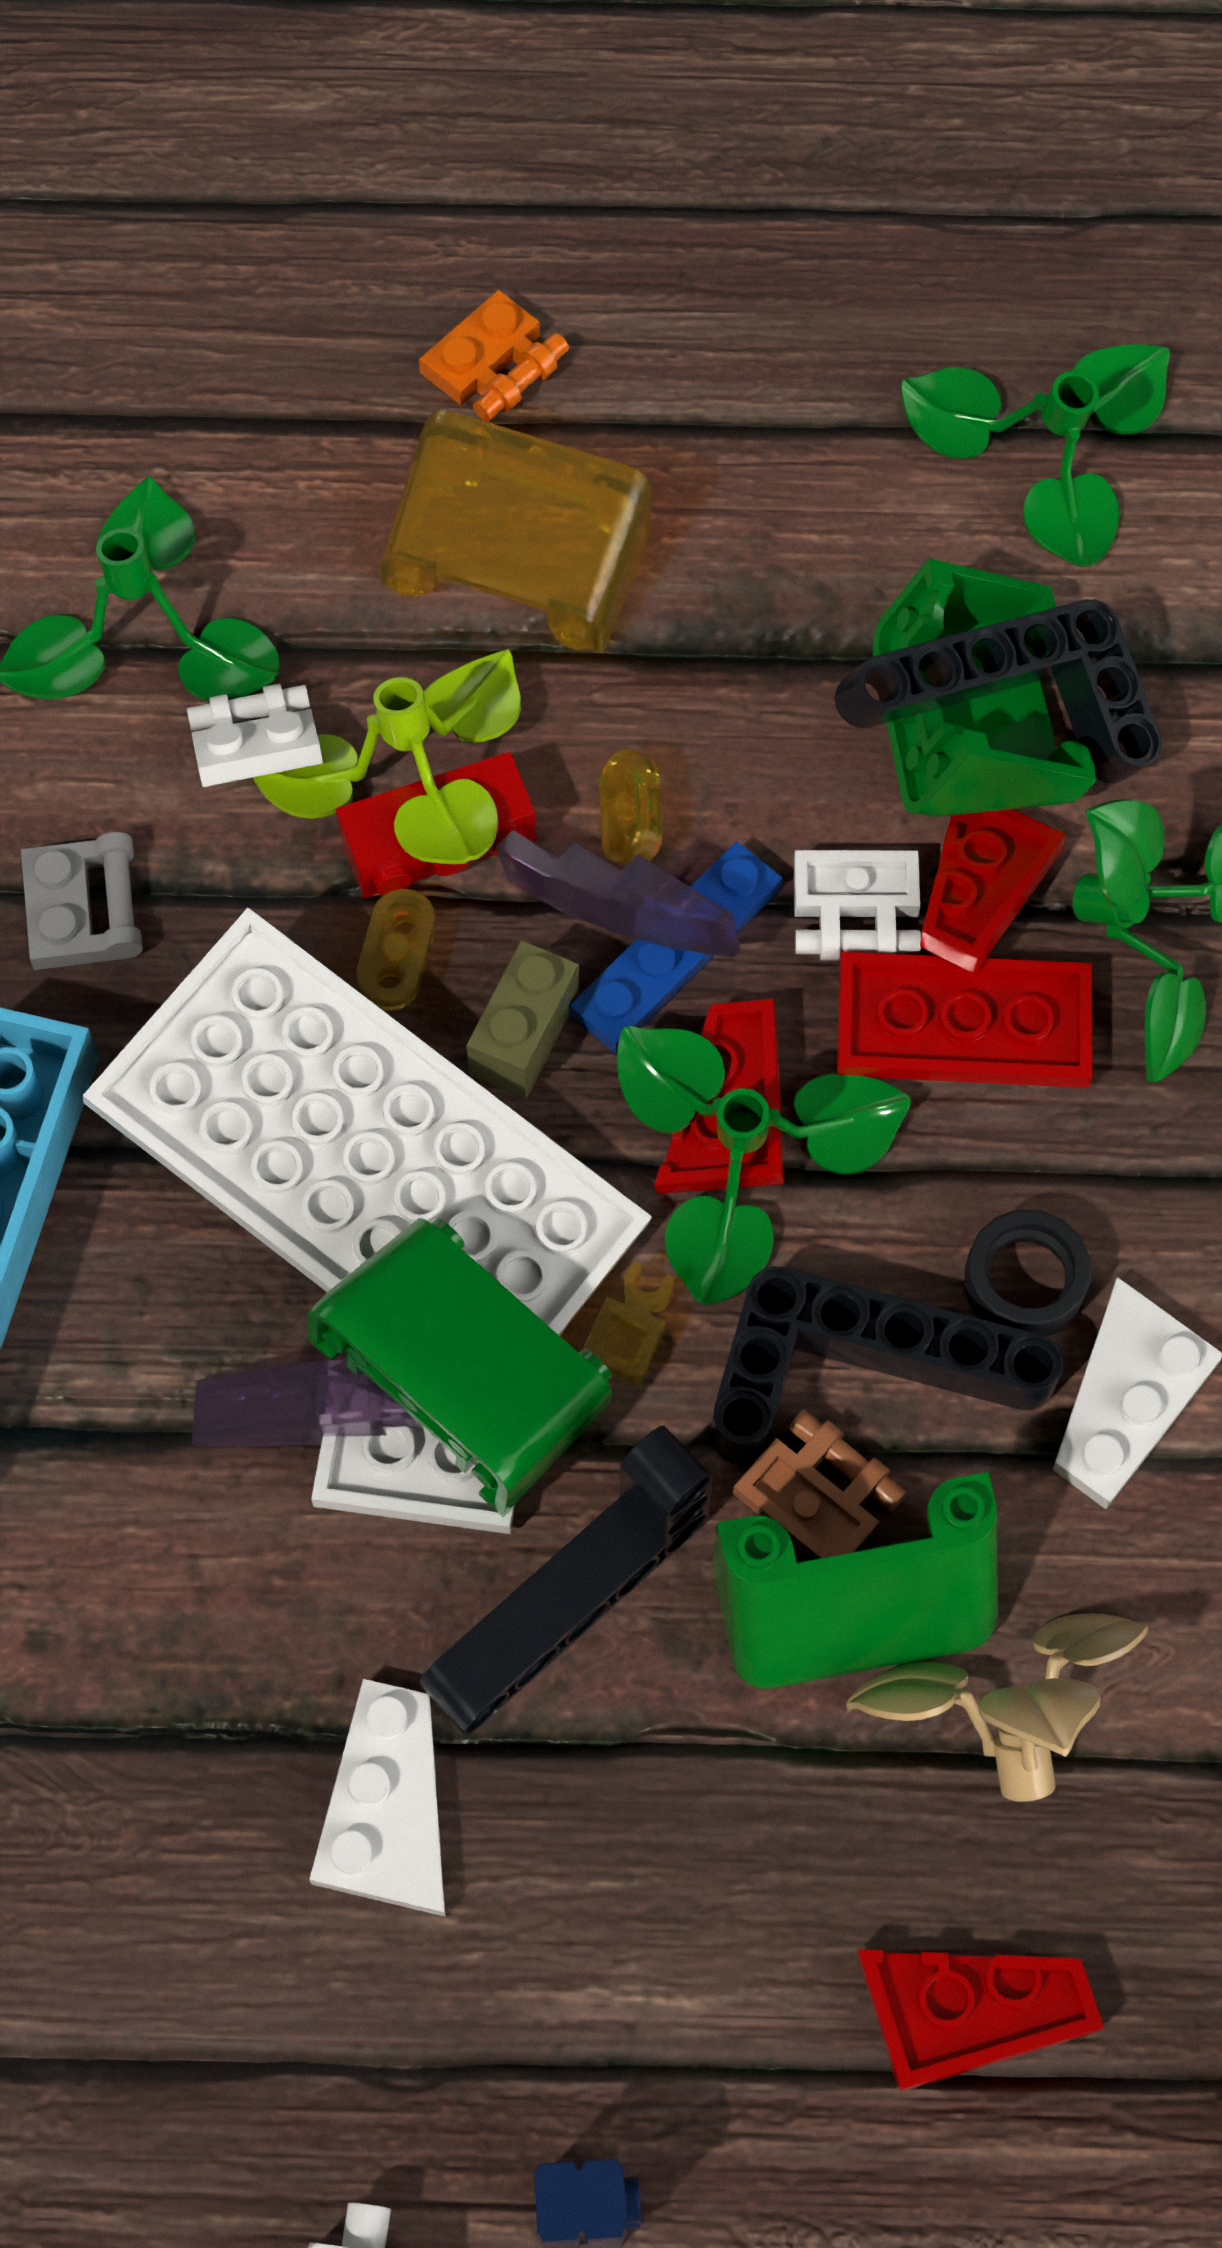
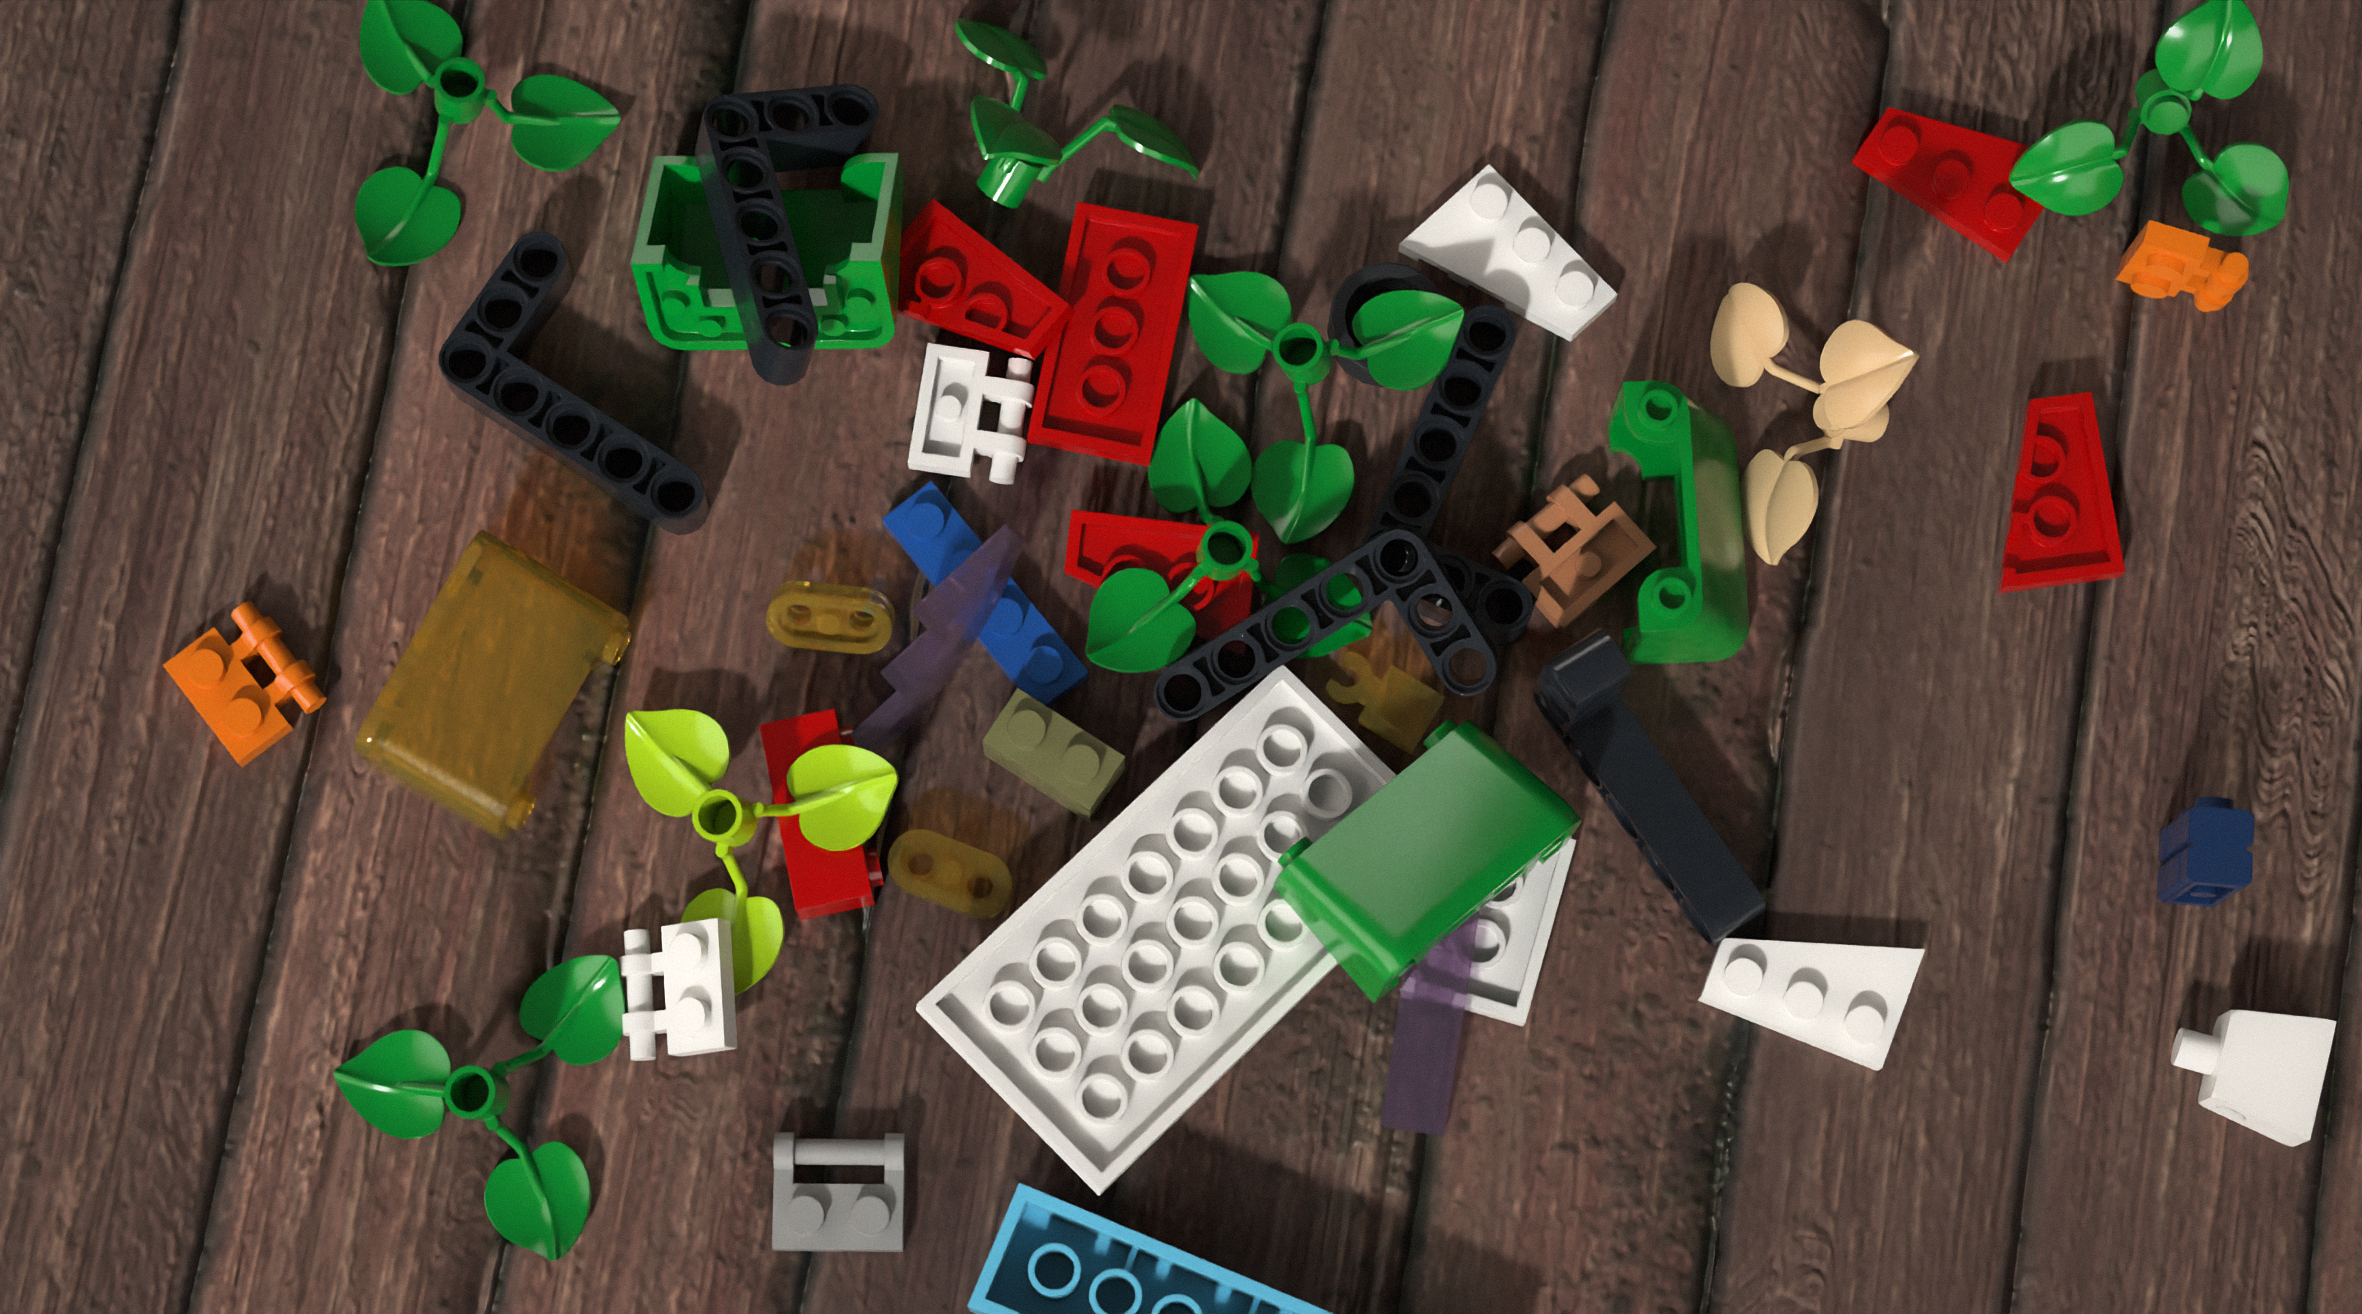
camera: 85 degrees left, 10 degrees up
(702, 1233) = (1328, 616): none -> black beam
(789, 549) = (555, 405): none -> black beam
(1005, 1279) = (1248, 313): none -> green plant

